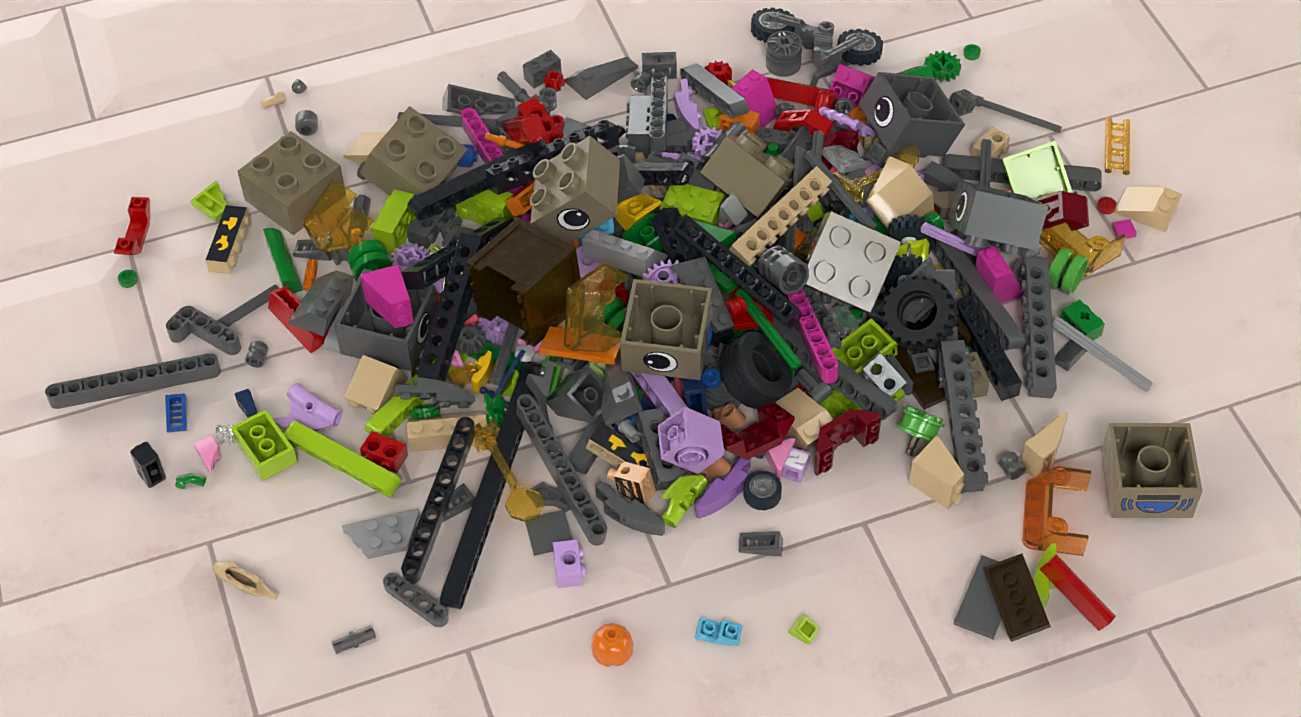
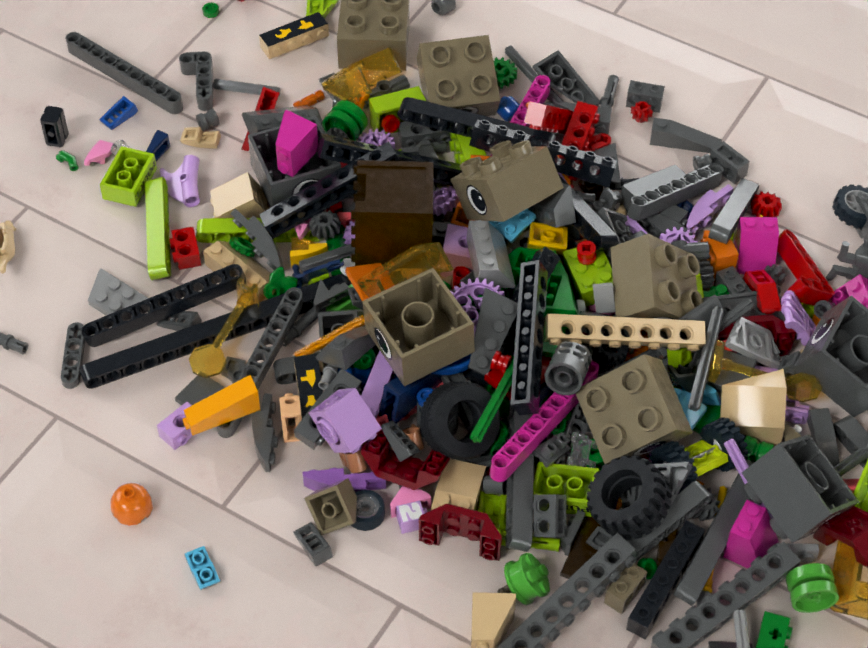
camera: 50 degrees right, 0 degrees up
(272, 371) = (197, 138): none -> tan slope
(282, 260) = (304, 76): green brick -> none
(404, 234) = (390, 123): none -> red tile
(549, 96) = (619, 120): dark grey wheel -> none
(591, 406) = (319, 344): none -> light orange axle
(592, 515) = (223, 406): none -> light orange slope
(682, 495) = (304, 455): lime pin -> none
(686, 194) = (586, 252): none -> red wheel
(736, 422) = (399, 441): none -> dark grey slope
(747, 505) = (333, 506): none -> dark tan slope
(783, 53) = (834, 228): dark grey wheel -> none
(804, 629) = (254, 628): lime slope -> none

